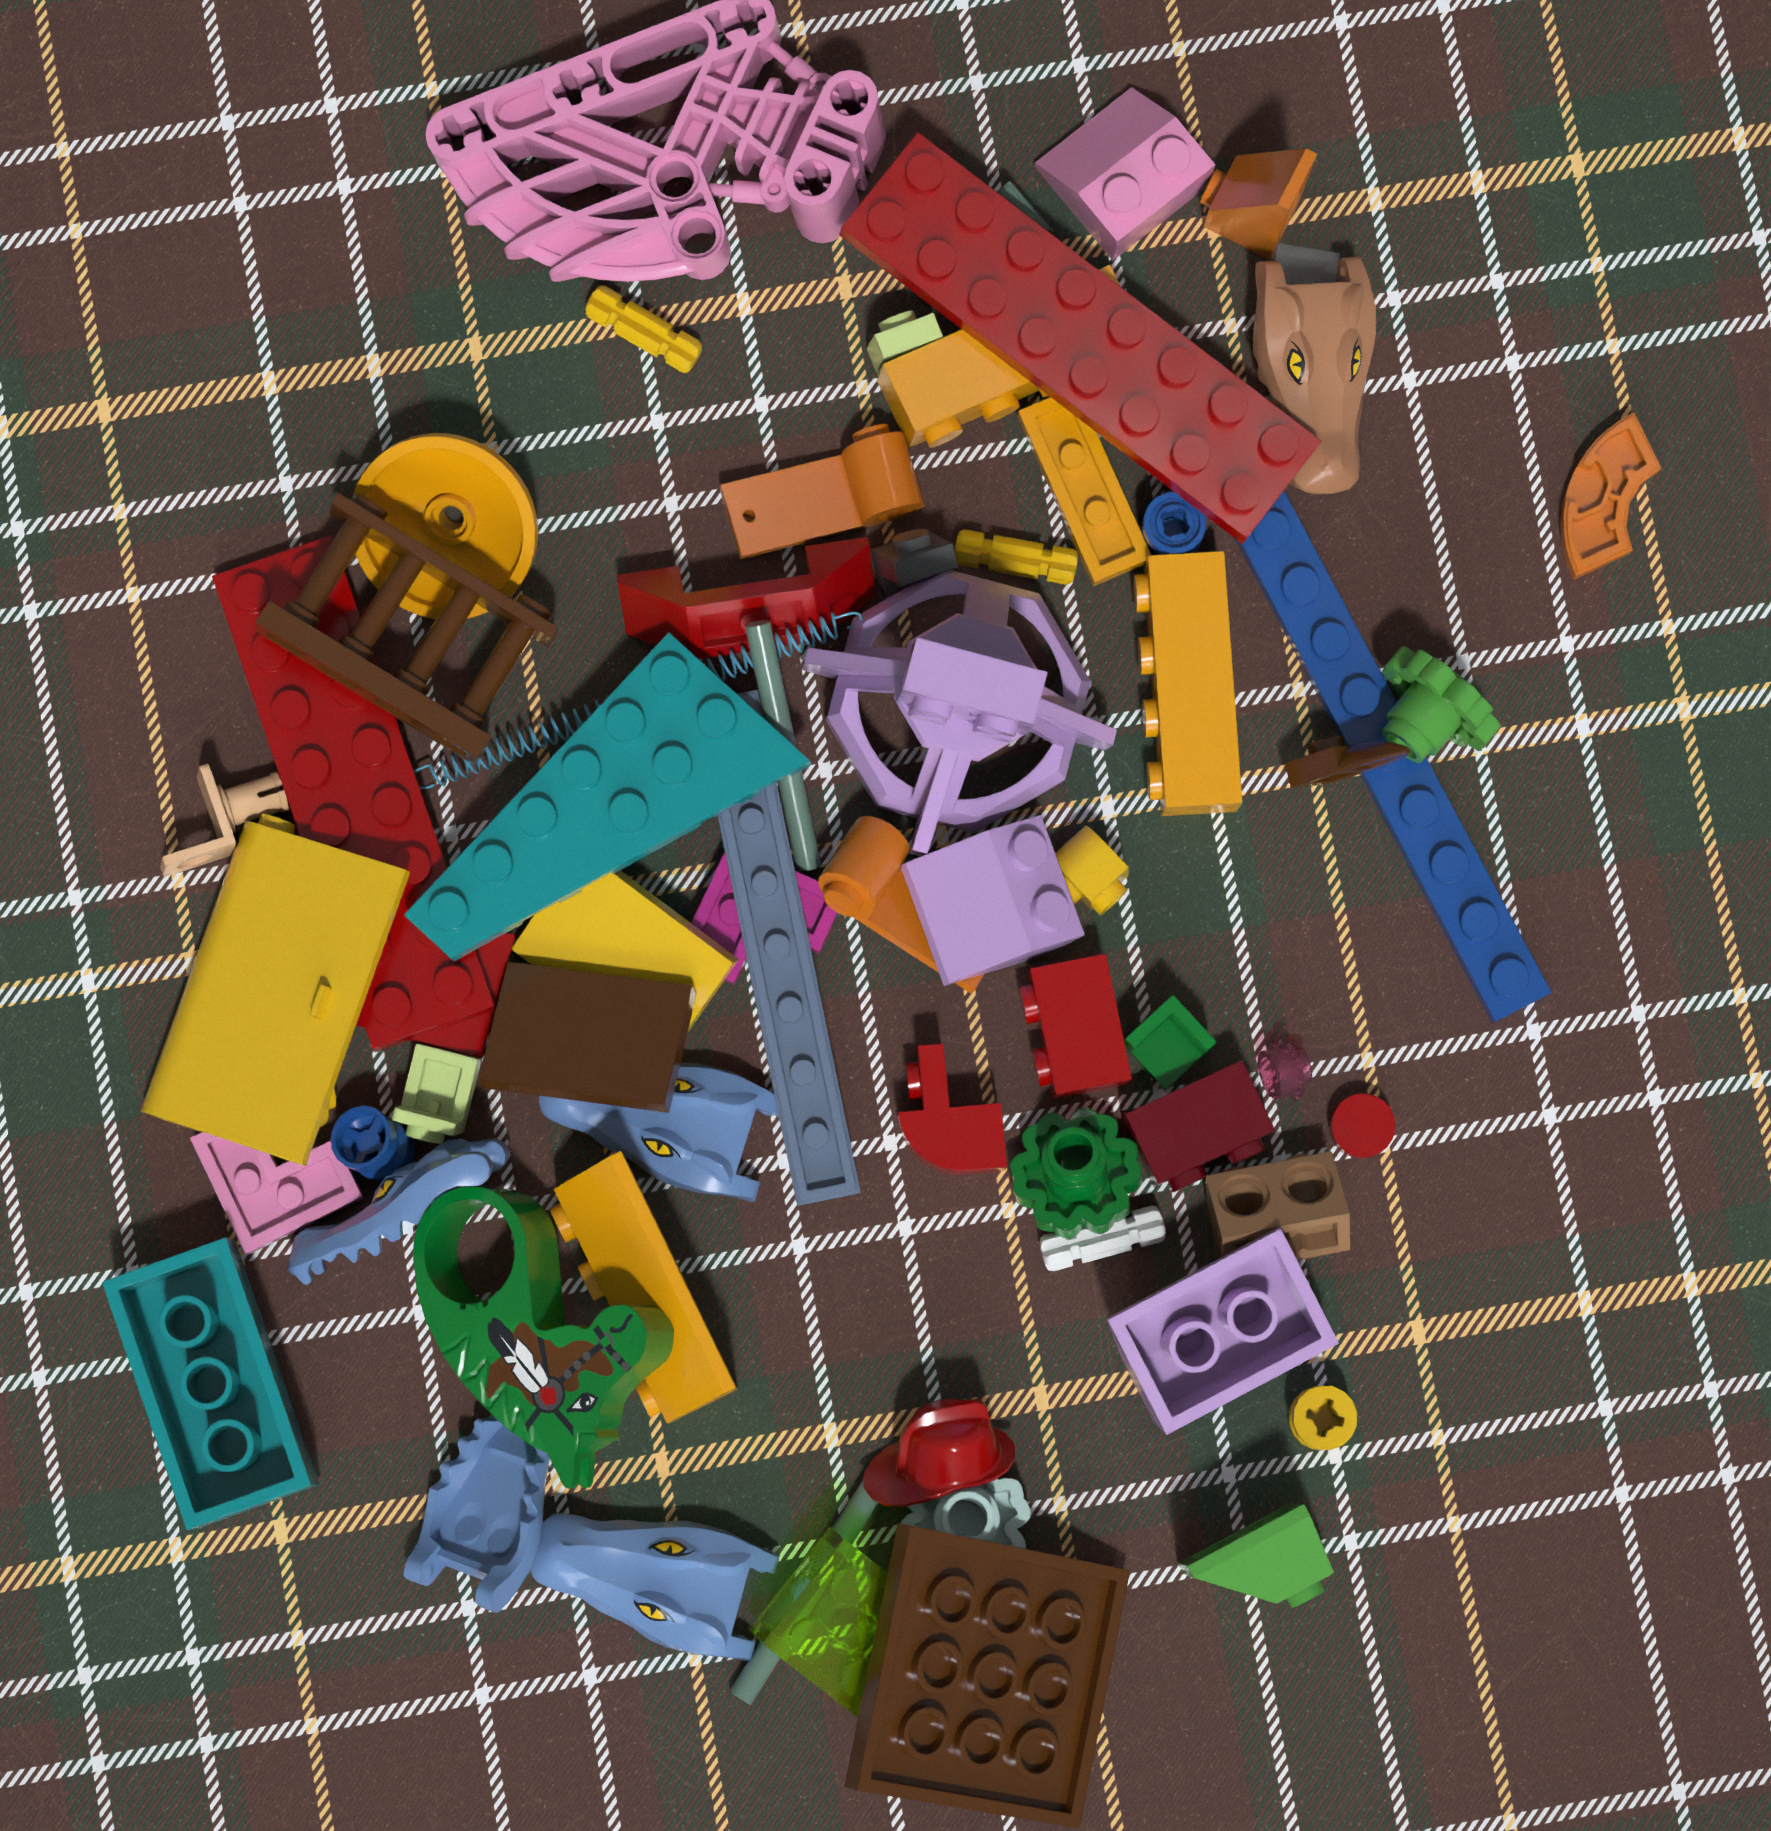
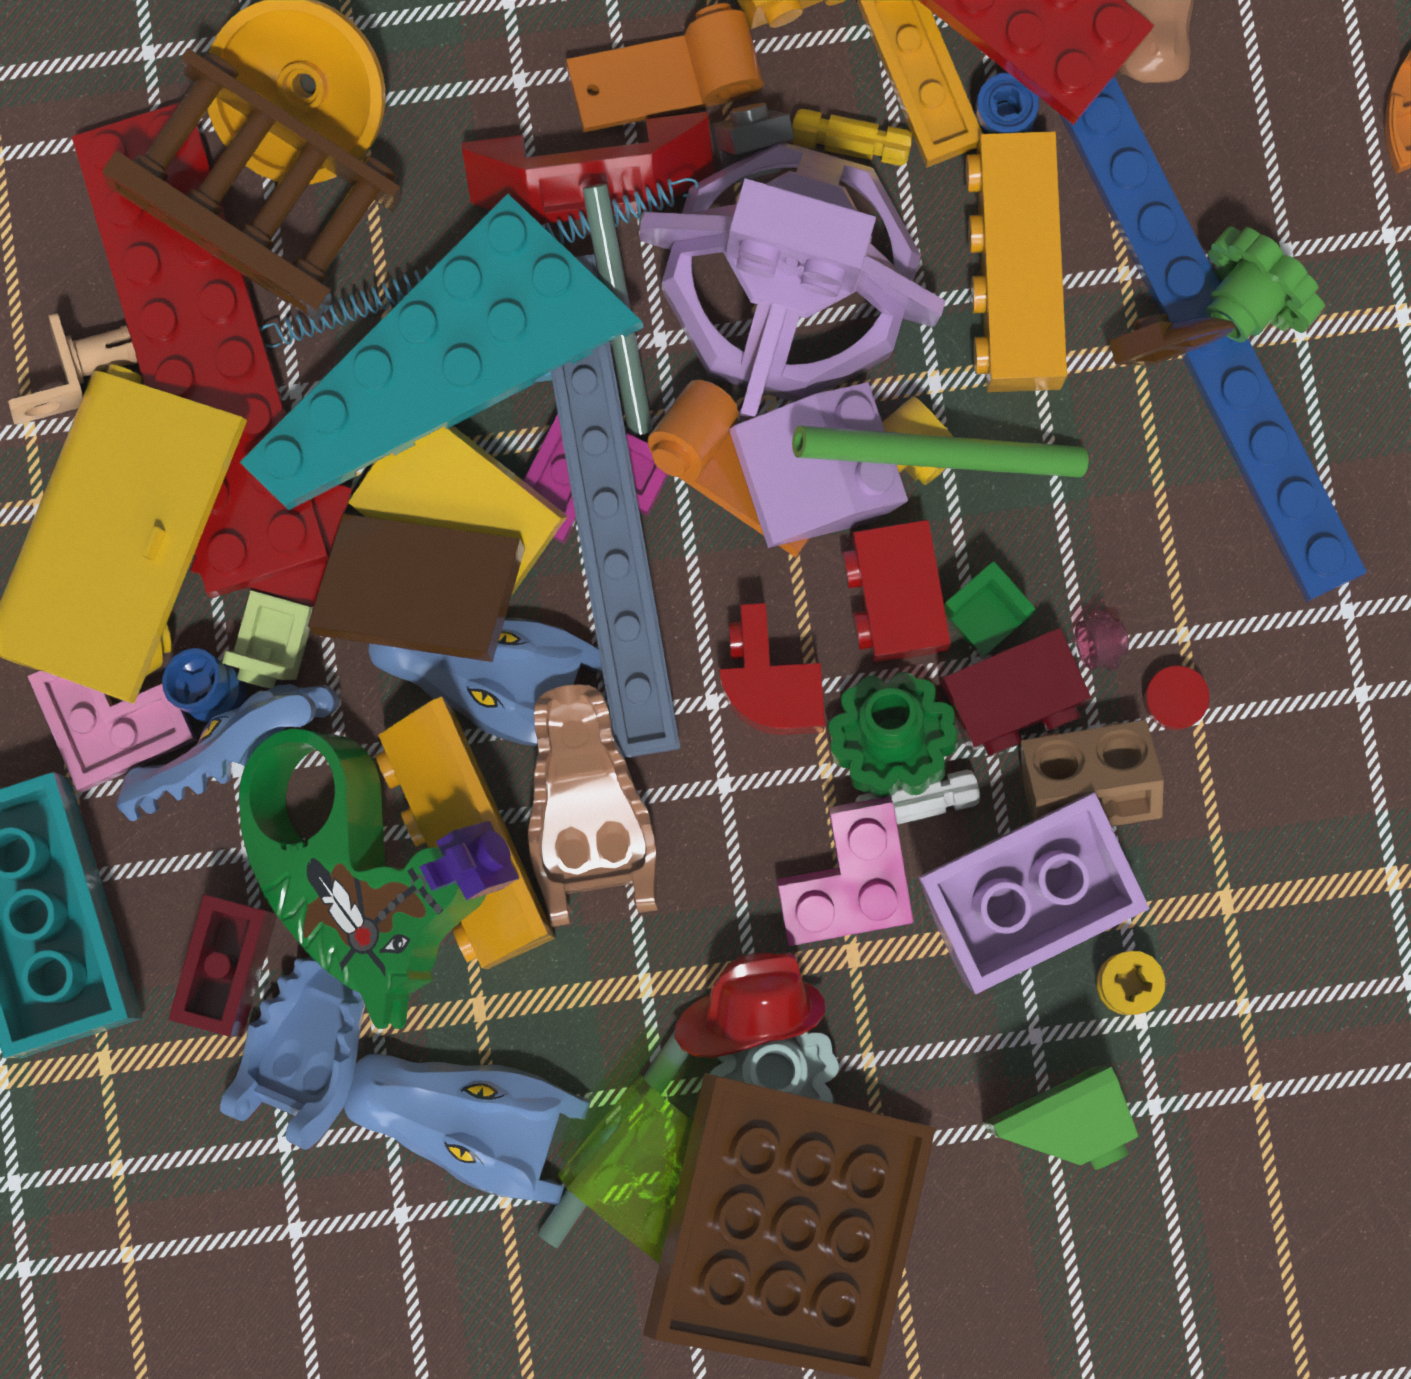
camera: 15 degrees right, 0 degrees up
(402, 1430) = (222, 967): none -> dark red brick
(661, 1316) = (474, 860): none -> dark purple plate
(767, 1261) = (586, 813): none -> nougat animal
(1050, 1333) = (864, 890): none -> plate
(1115, 885) = (939, 451): none -> bright green piece

